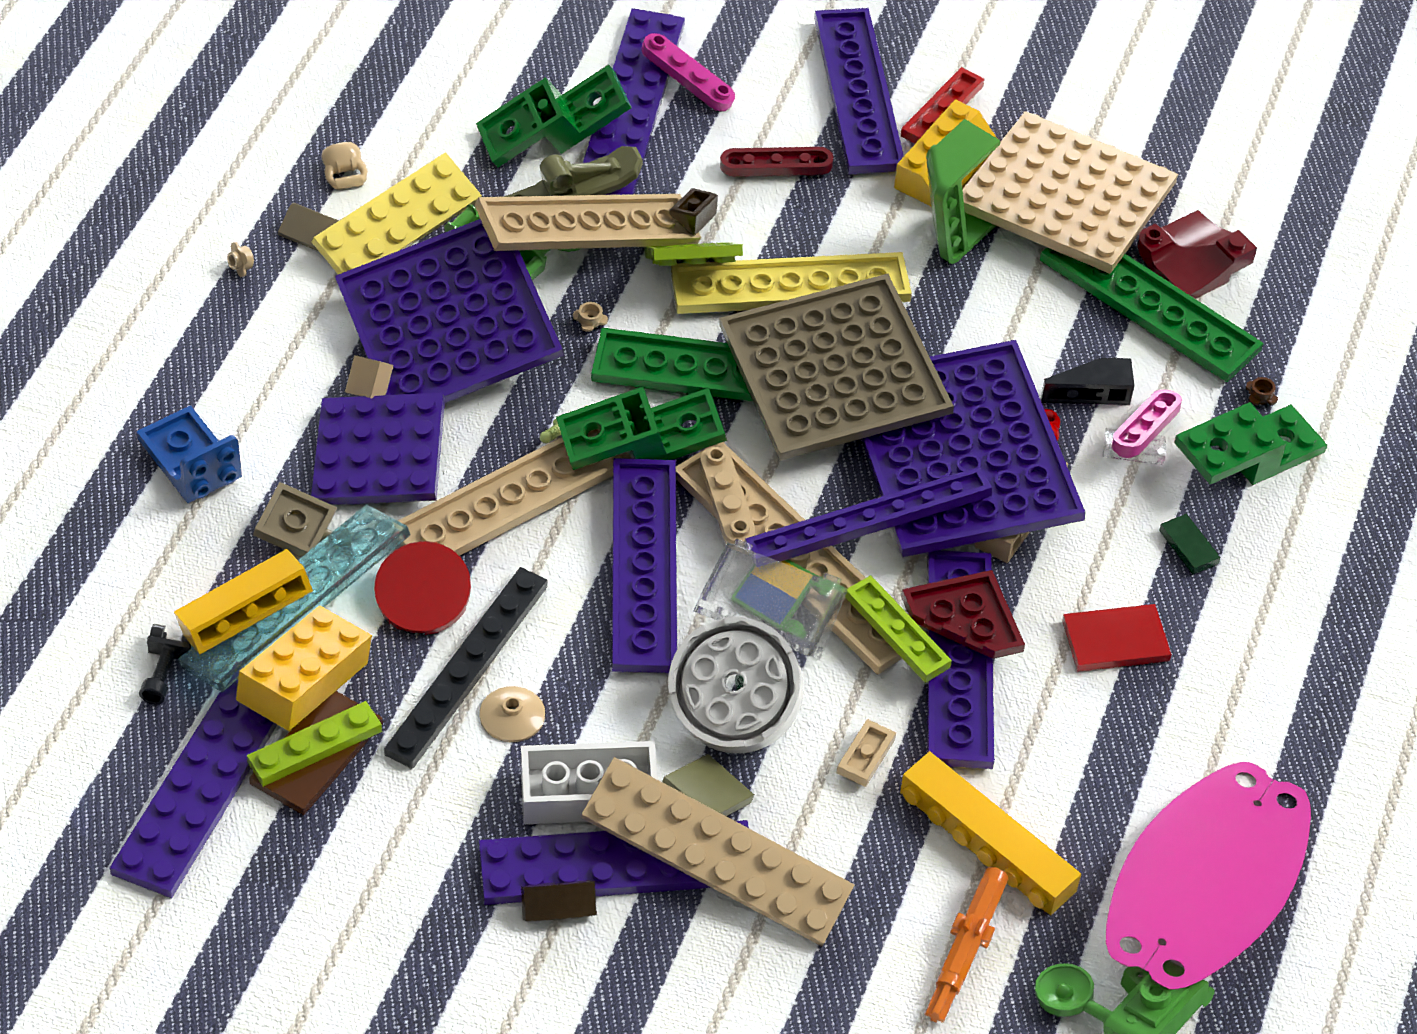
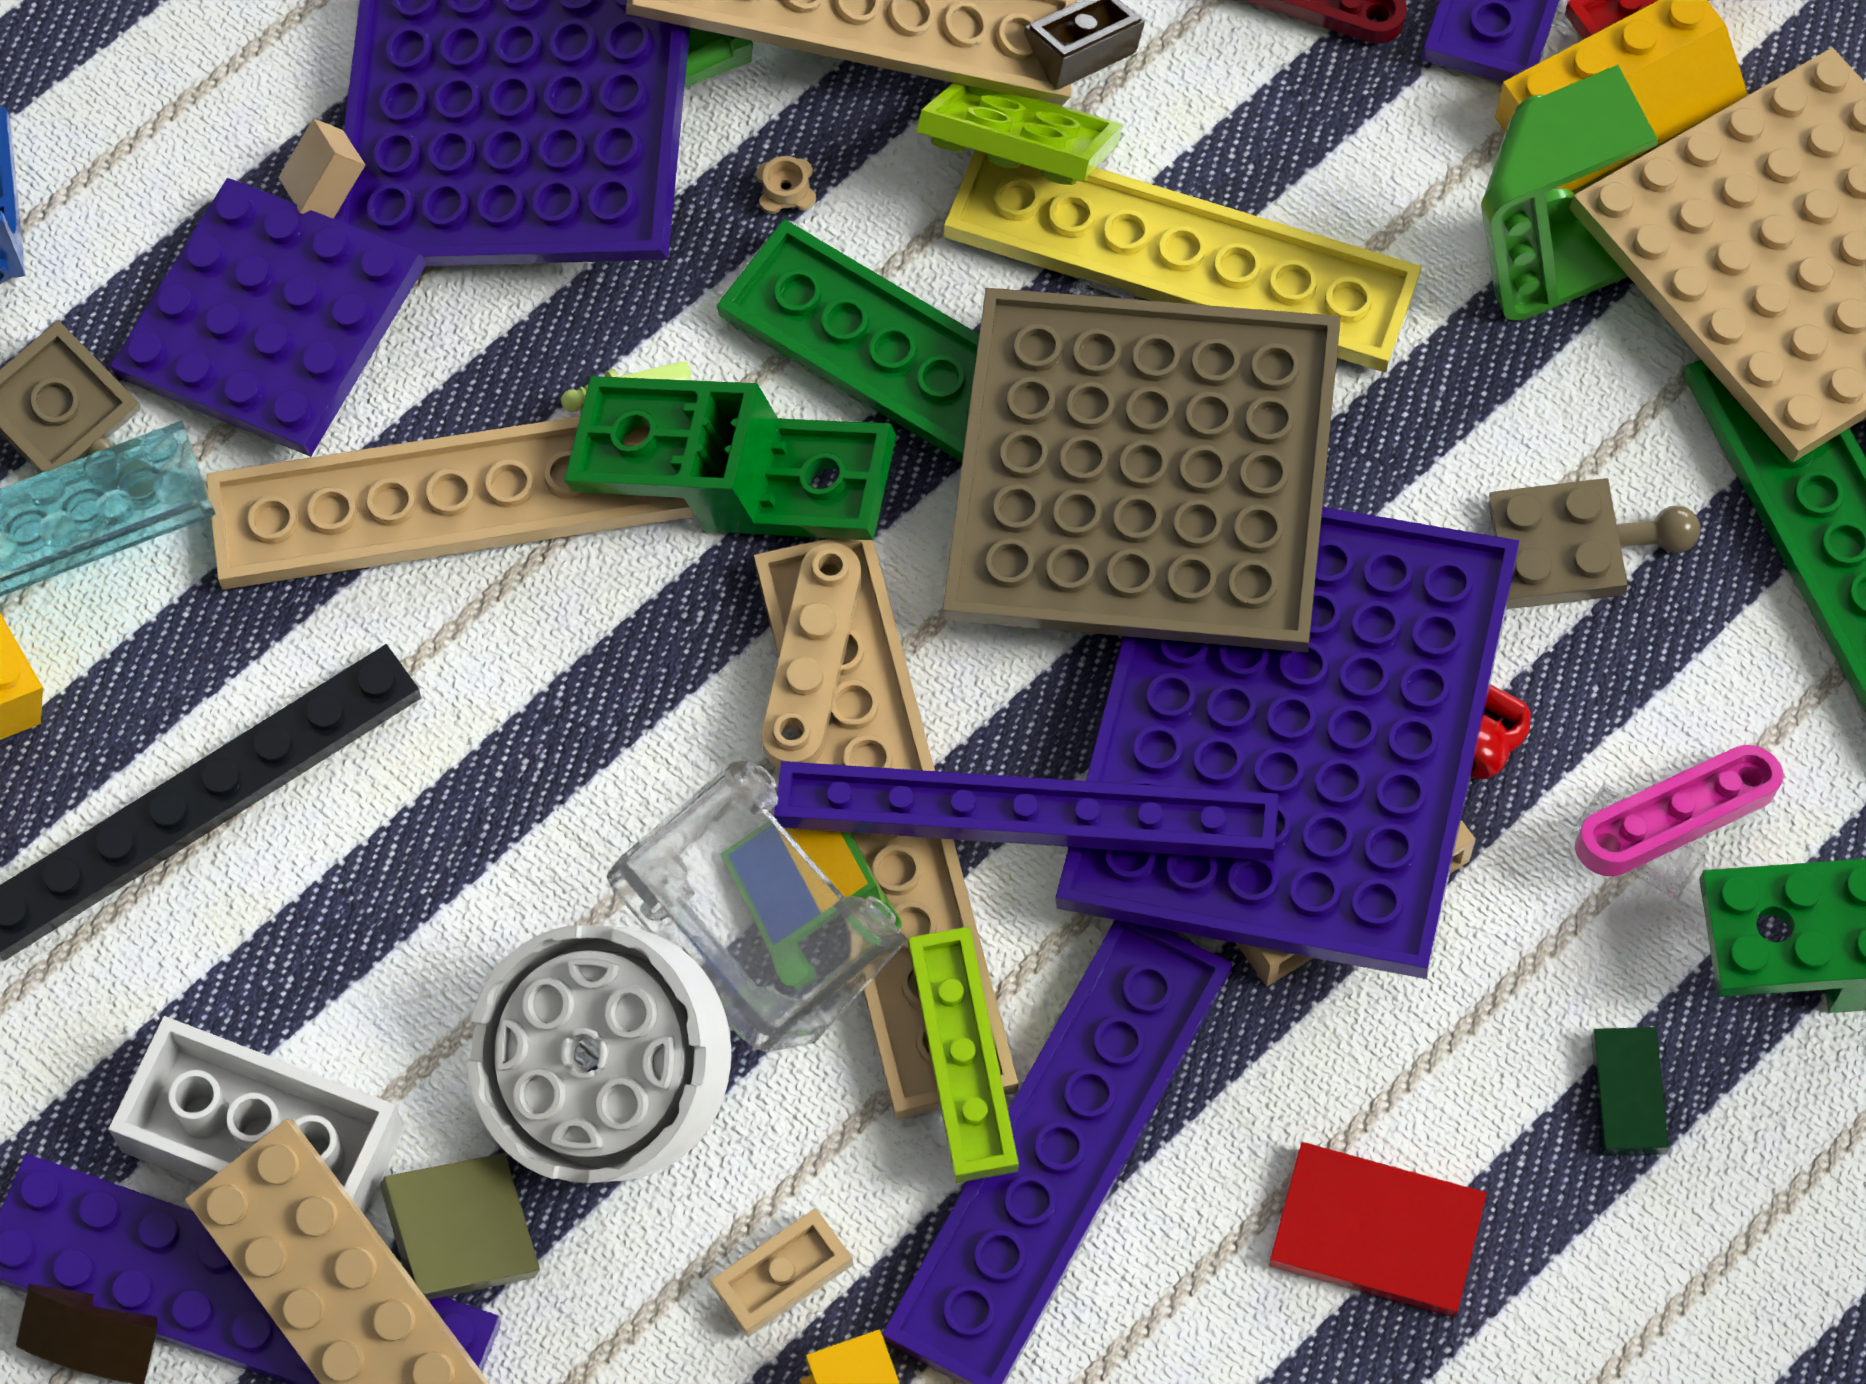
camera: 30 degrees right, 15 degrees up
(422, 587) = (193, 621): red tile -> none
(512, 724) = (231, 950): tan dish -> none
(644, 565) = (598, 728): dark purple plate -> none
(968, 612) = (1108, 1074): dark red plate -> none
(1037, 338) = (1573, 540): none -> dark tan plate
(1096, 382) = (1637, 681): black slope -> none

